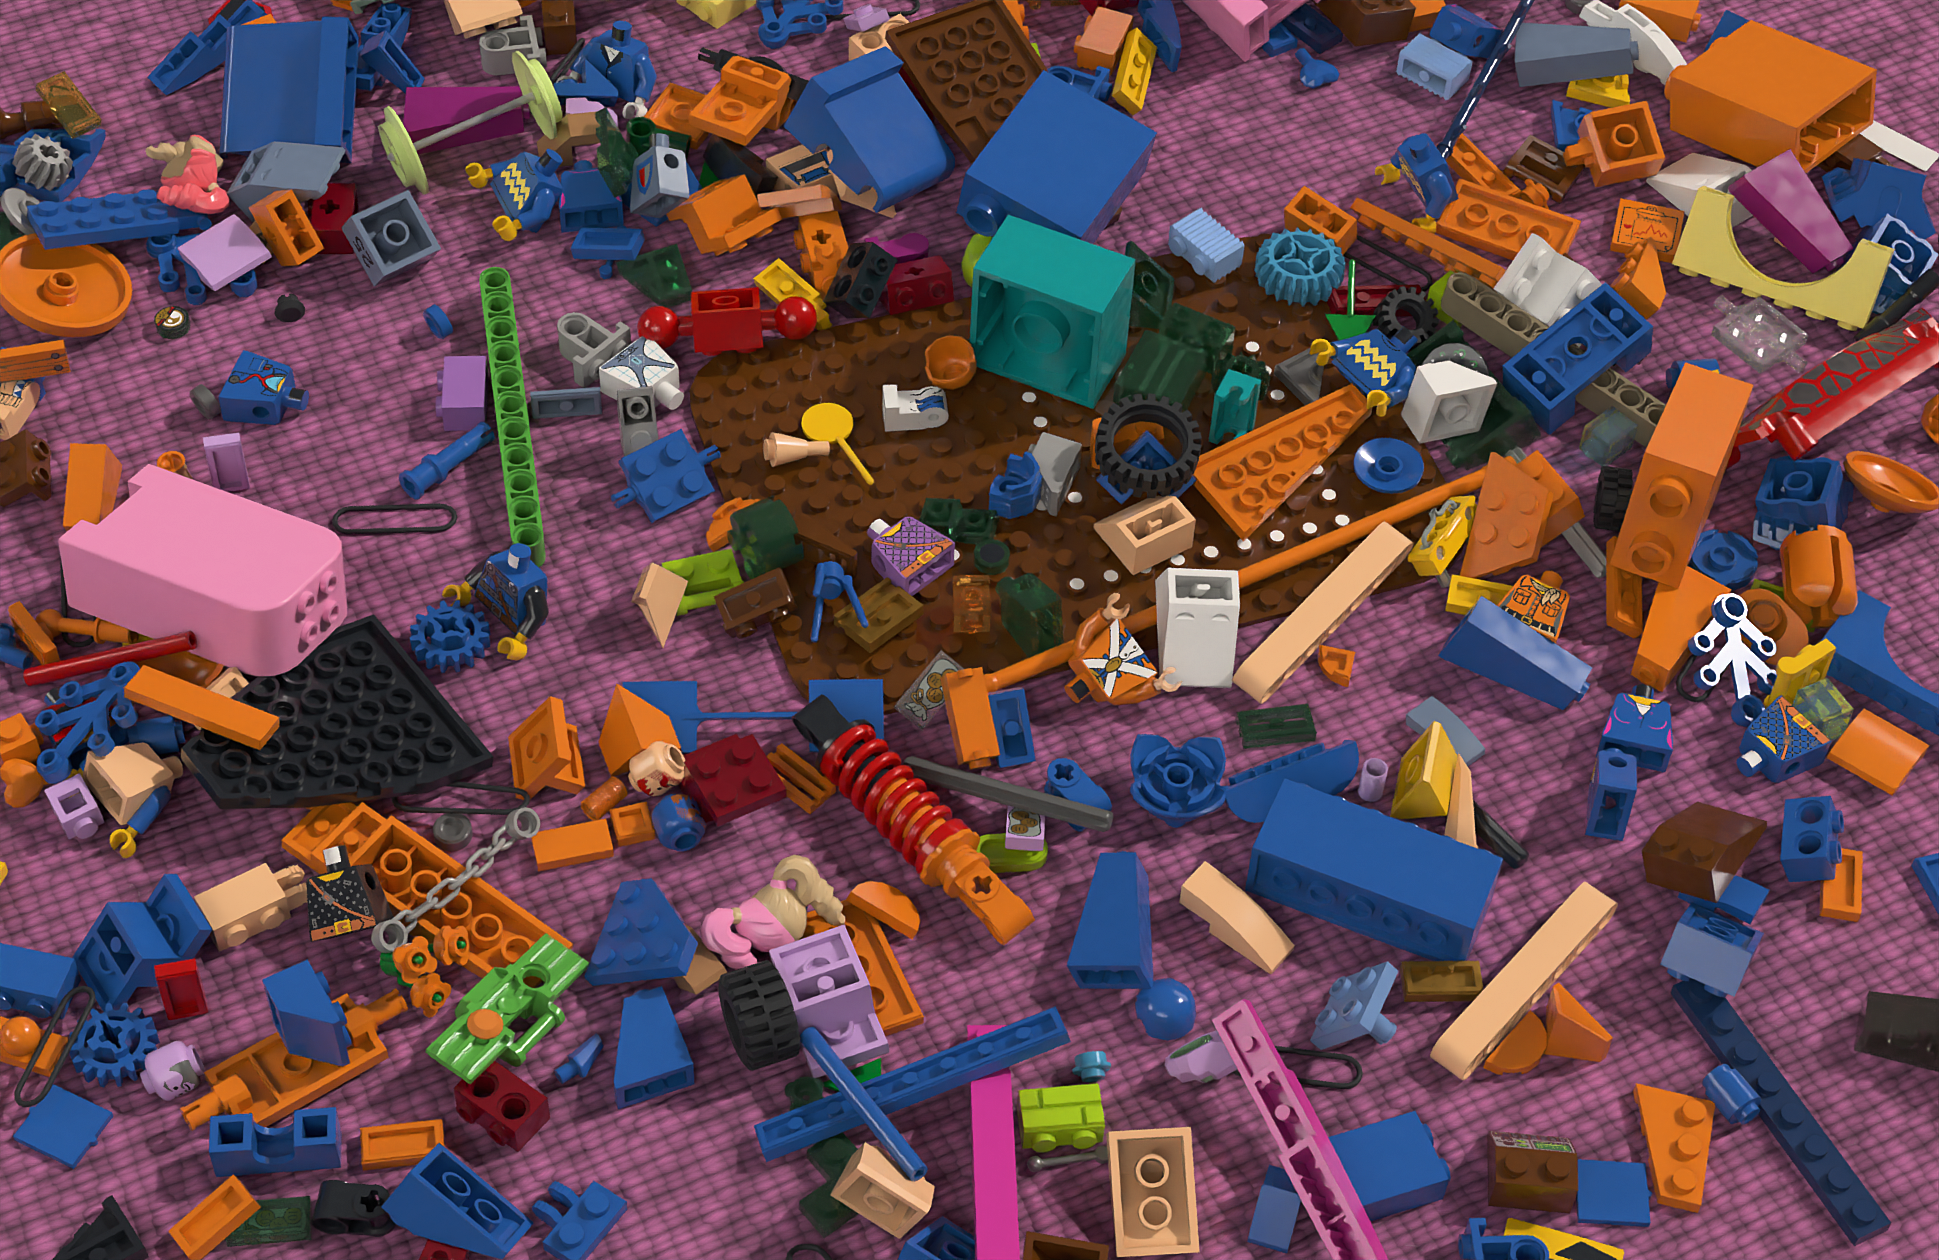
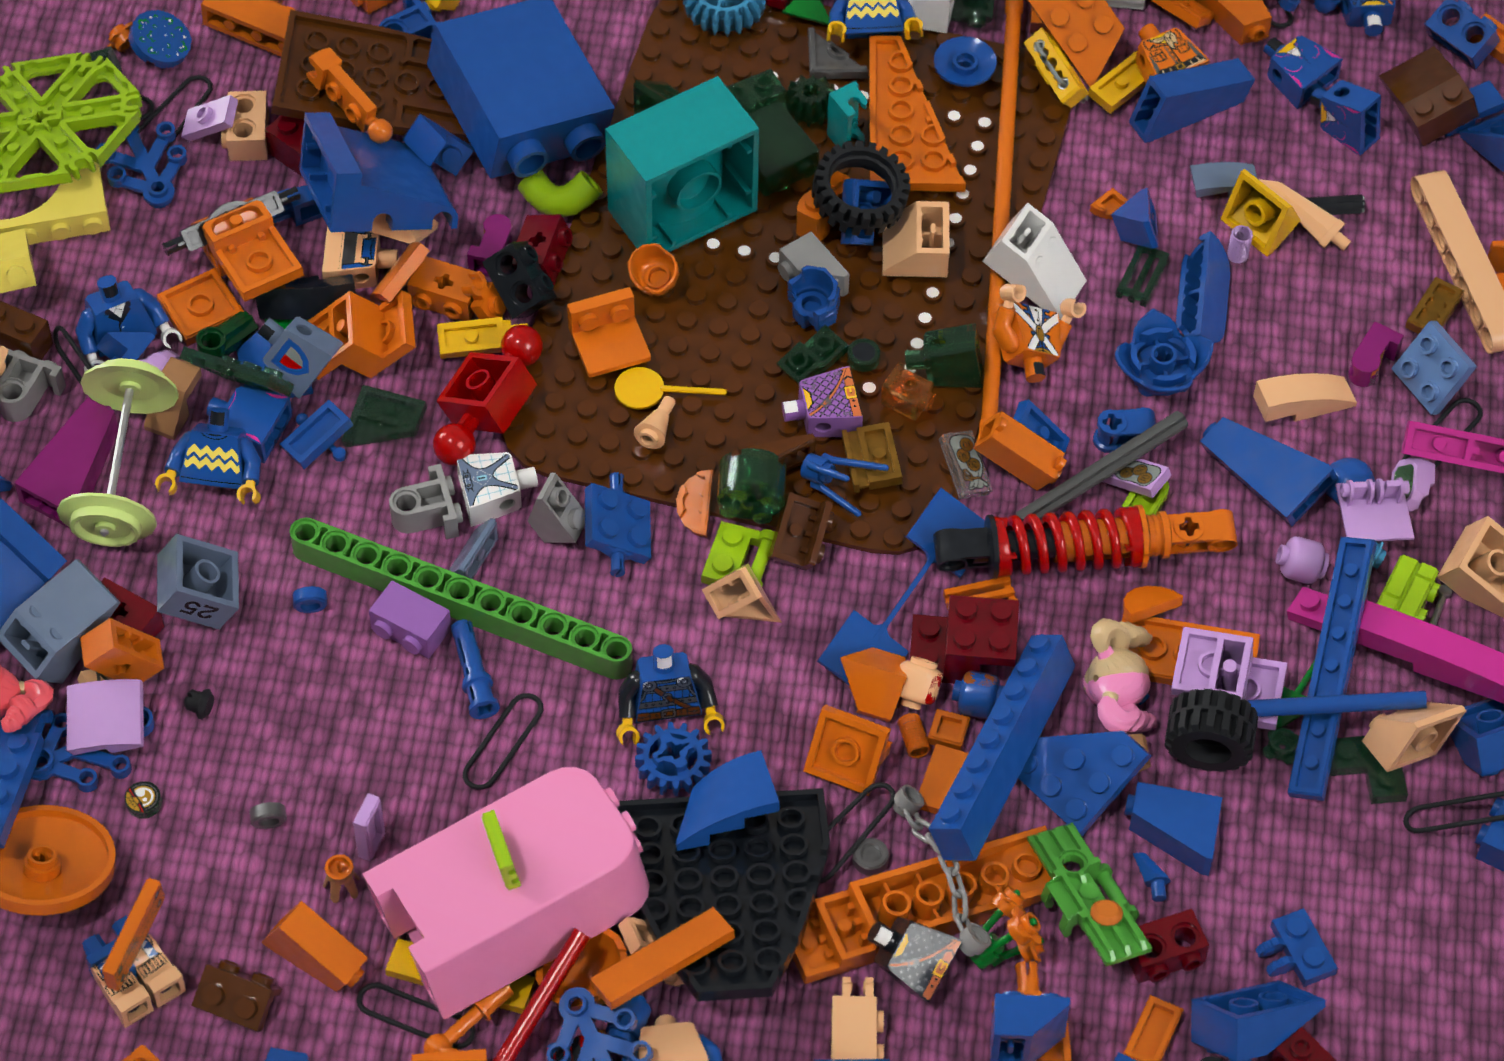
camera: 55 degrees left, 5 degrees up
(207, 529) = (500, 850): none -> lime tile
(260, 391) = (288, 766): blue torso -> none
(418, 686) = (725, 798): none -> blue slope
(613, 854) = (1002, 748): none -> blue brick
(859, 367) = (607, 332): none -> orange bracket
(913, 408) = (676, 322): white leg -> none
(945, 48) = (347, 94): none -> orange plate
(956, 154) = (437, 145): none -> blue slope
(1031, 998) = (1302, 560): none -> lavender head
(1134, 1036) = (1375, 509): none -> lavender hinge
(1206, 245) = (654, 41): light blue brick -> none
(1322, 612) = (1070, 183): light nougat beam -> none
(1333, 686) = (1137, 220): none -> blue slope
(1335, 952) = (1376, 346): none -> magenta leg
(1372, 873) = (1330, 290): blue brick -> none

